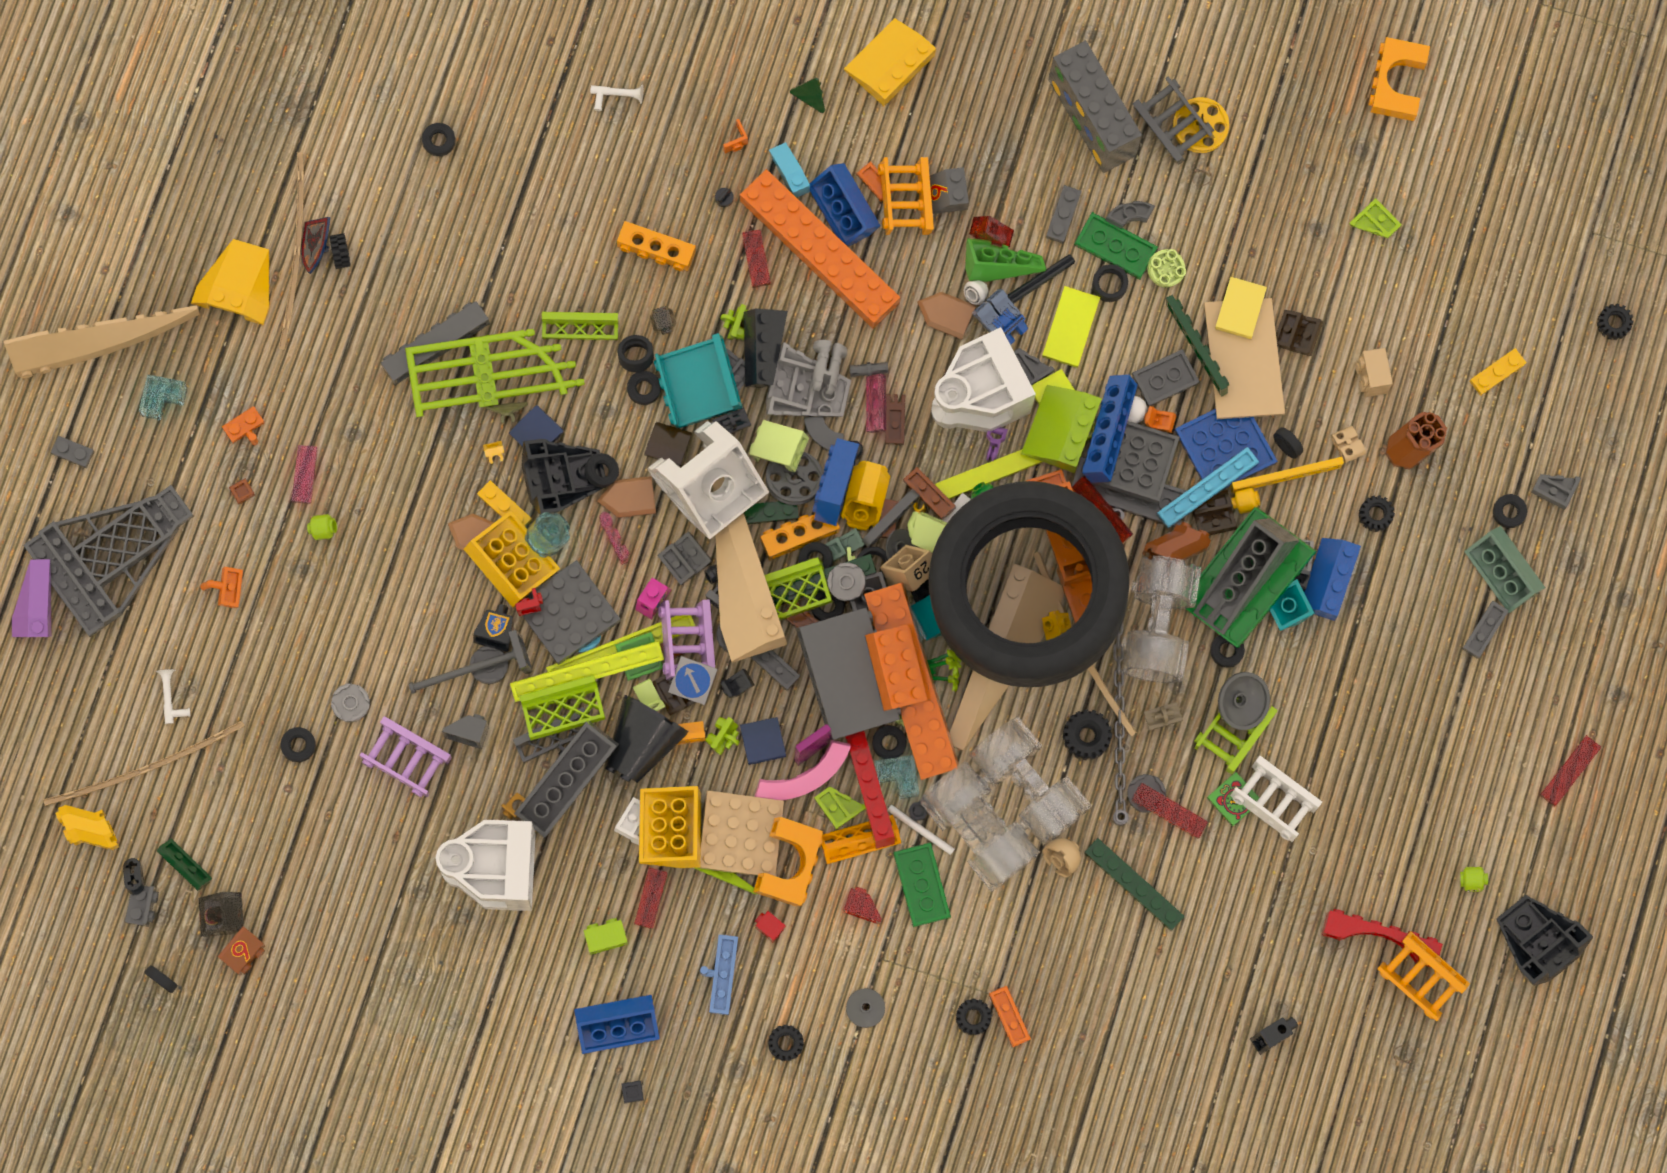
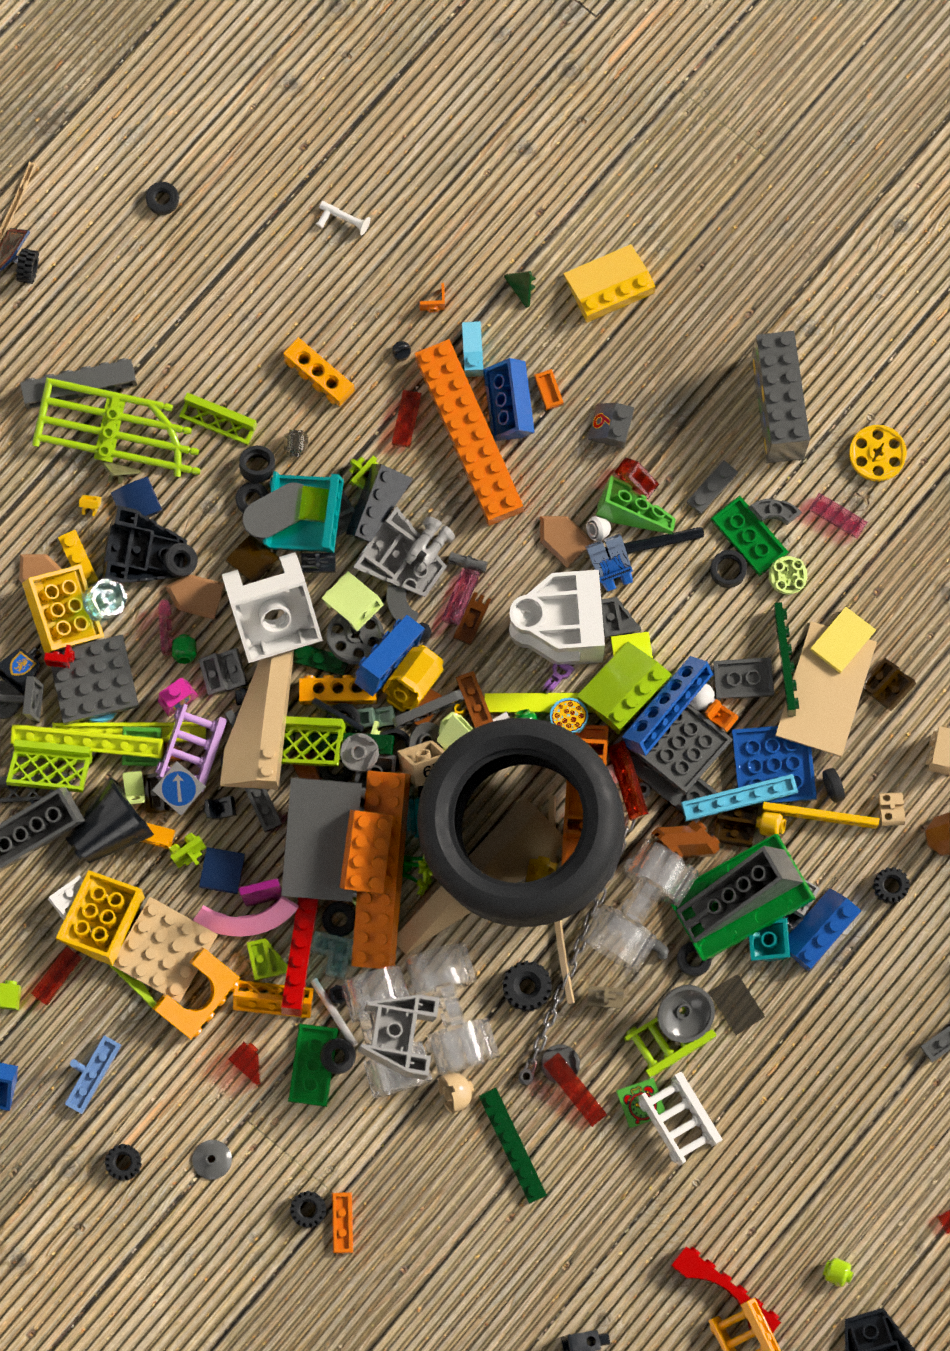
camera: 30 degrees right, 0 degrees up
(640, 551) = (184, 649): none -> green head
(675, 389) = (273, 512): none -> dark grey tile
(706, 369) = (313, 504): none -> clear neon green piece
(769, 926) = (154, 1046): red brick -> none
(810, 555) = (338, 715): none -> black bar
(922, 187) = (588, 411): light orange fence -> none
(932, 872) = (329, 1064): none -> black tyre
(994, 821) = (395, 1032): none -> light grey wedge
(1022, 469) = (569, 714): none -> tile
(1071, 327) = (674, 595): neon yellow tile -> none
(1167, 136) = (839, 451): dark grey fence -> none
(1189, 196) = (838, 515): none -> clear pink plate
(1195, 654) = (661, 949): none -> dark grey arm
(1283, 676) = (736, 1004): none -> clear smoke piece

